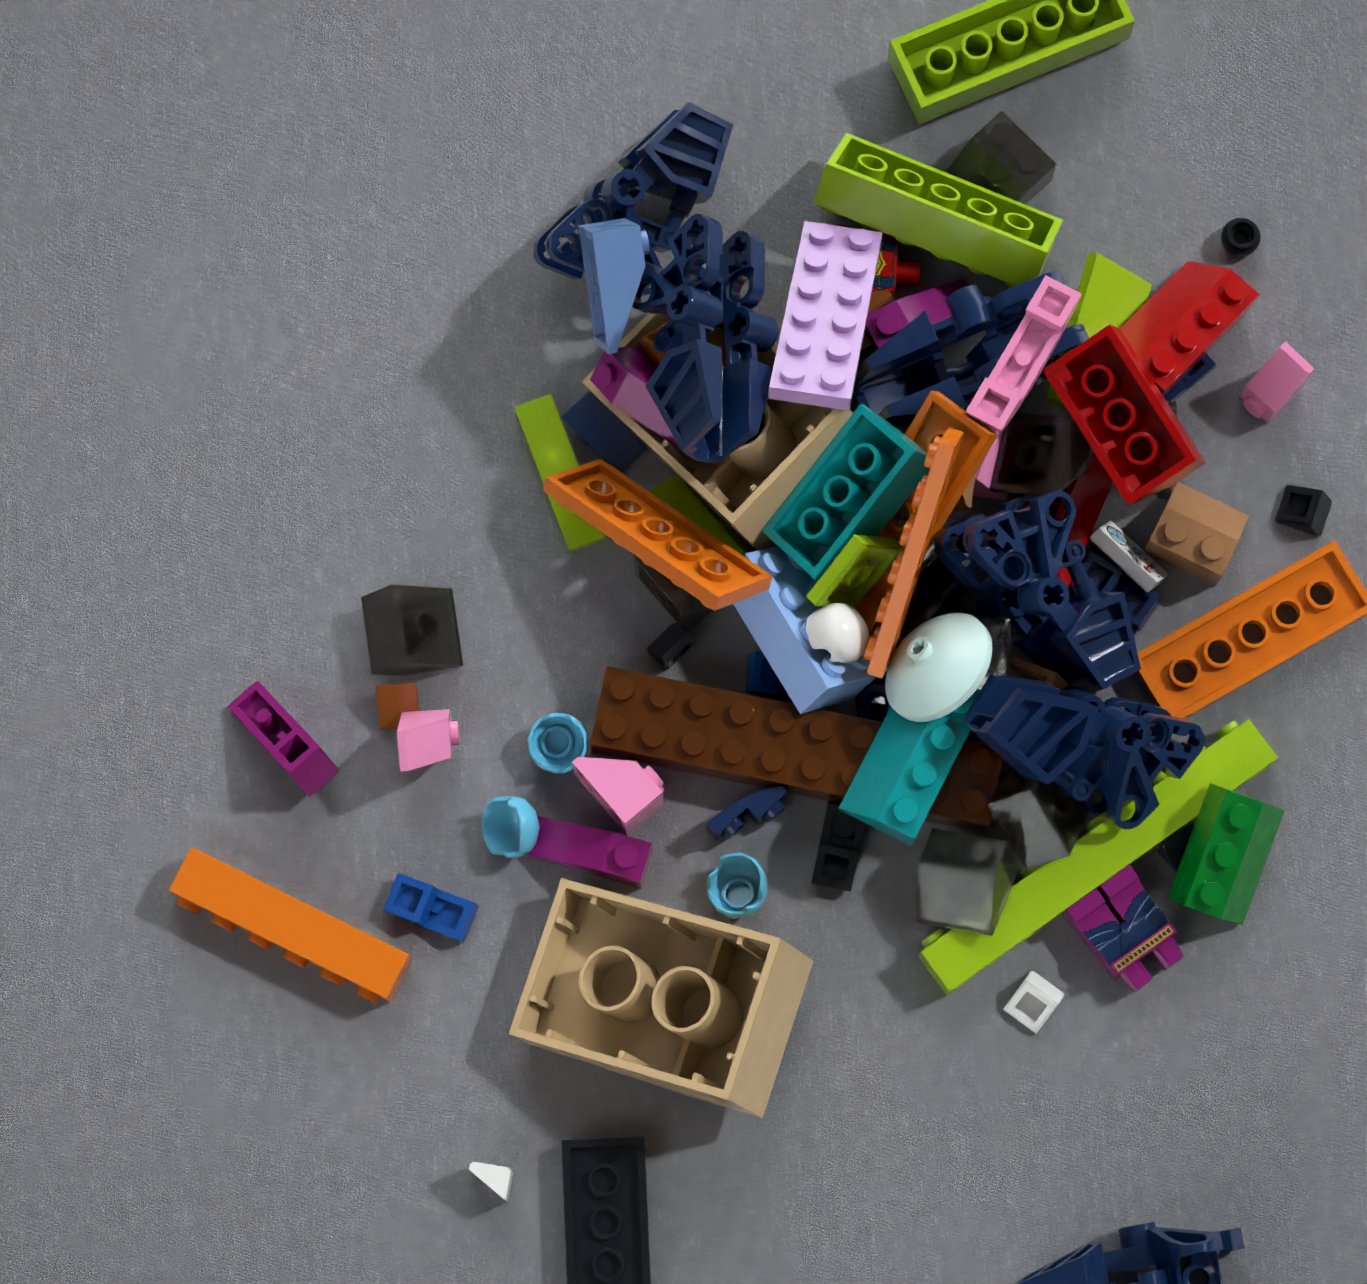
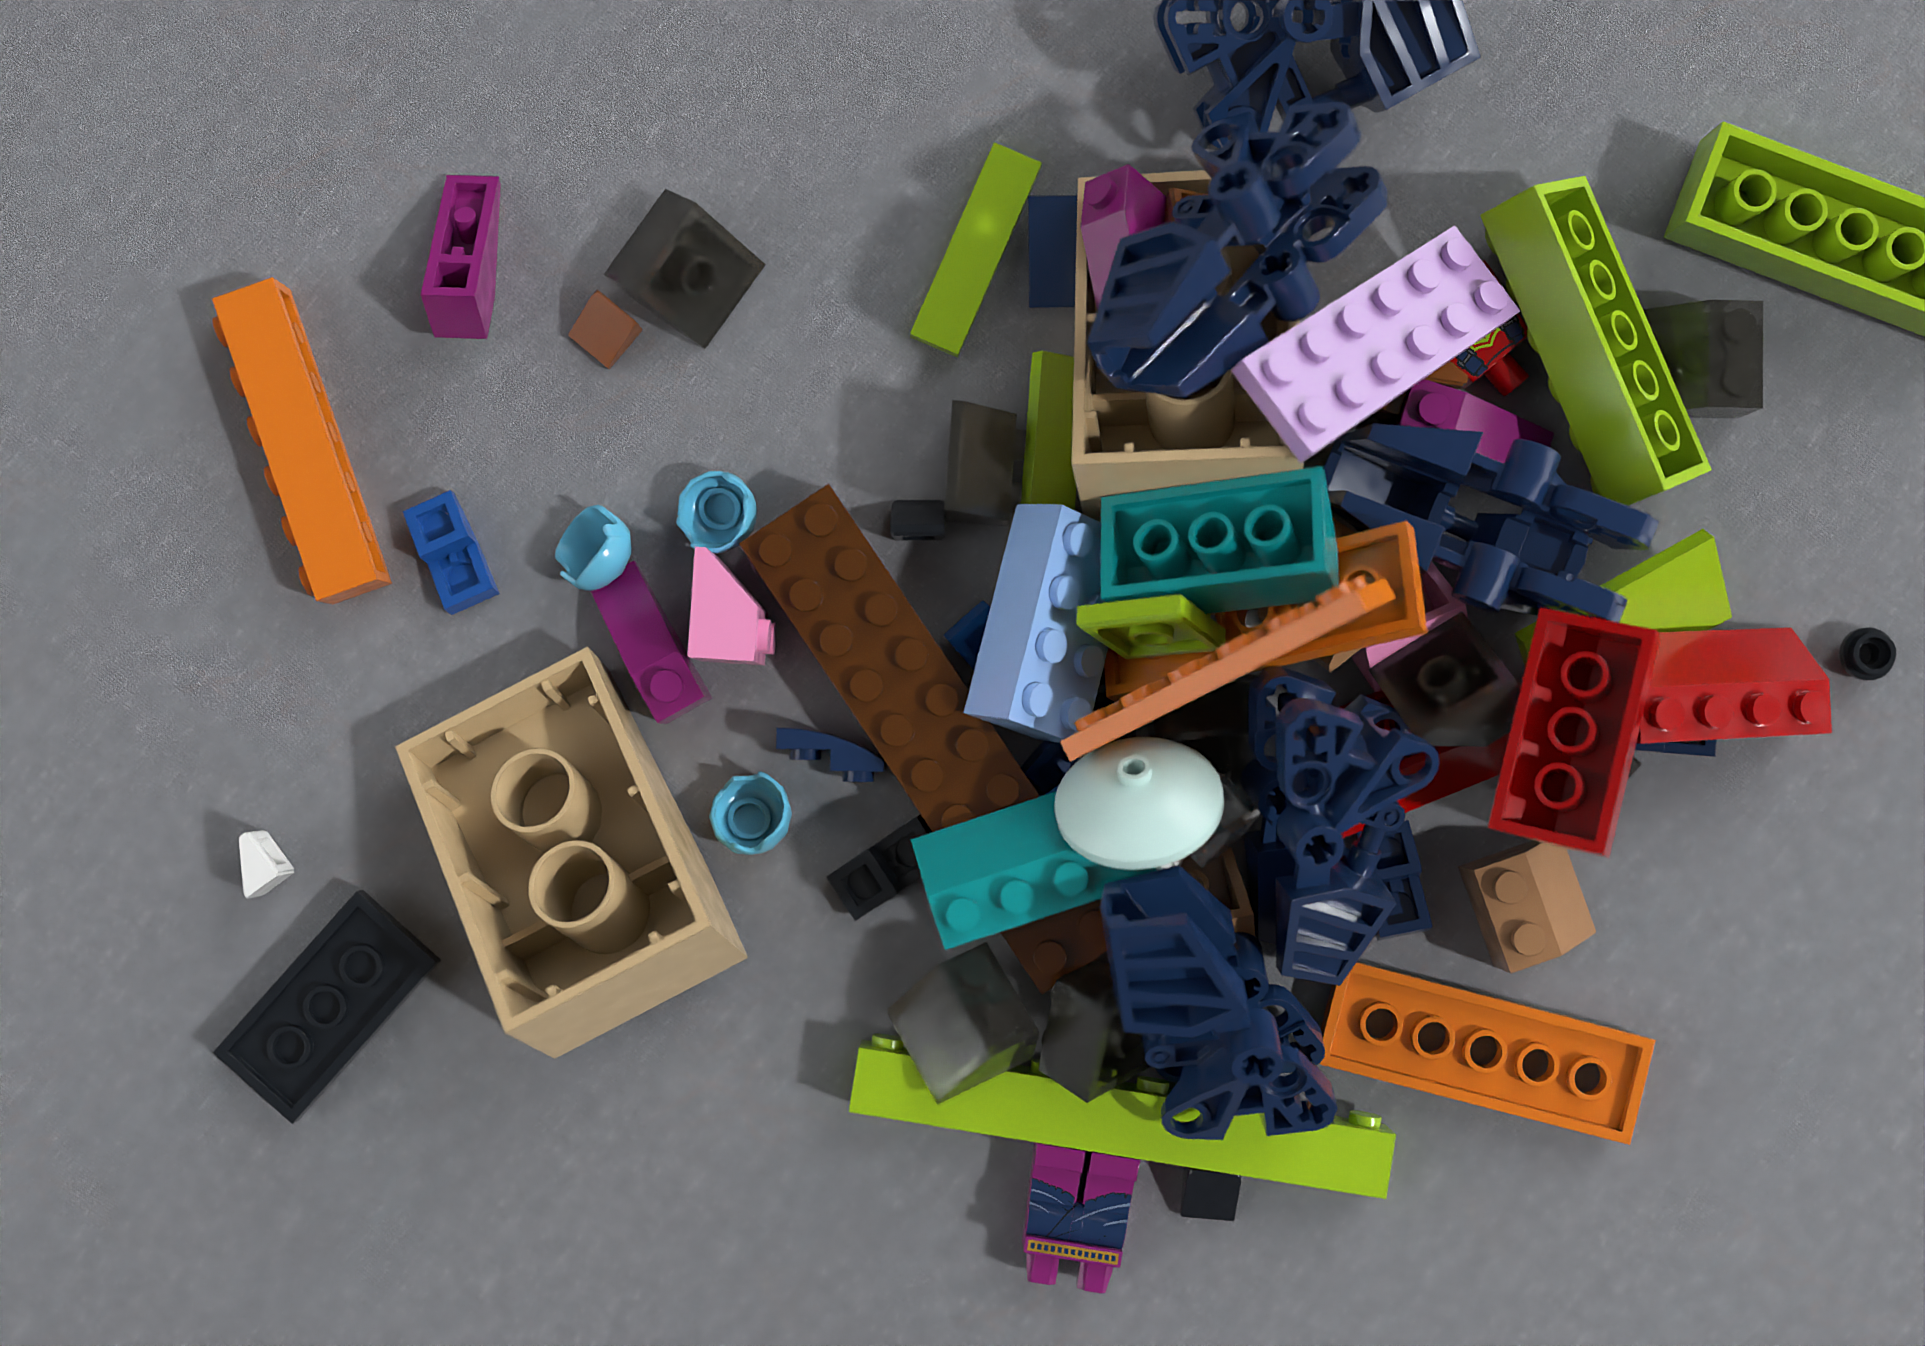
camera: 45 degrees right, 10 degrees up
(426, 738) = (589, 385): bright pink slope -> none
(613, 270) = (1210, 87): medium blue slope -> none
(657, 534) = (996, 404): orange plate -> none
(838, 630) = (1074, 672): white hair -> none
(1024, 355) = (1538, 576): bright pink slope -> none
(1034, 1001) = (926, 1189): white slope -> none
(1128, 556) = (1439, 861): white tile -> none
(1225, 854) = (1239, 1238): green slope -> none
(1276, 383) = (1758, 835): bright pink slope -> none
(1304, 509) = (1655, 977): black slope -> none

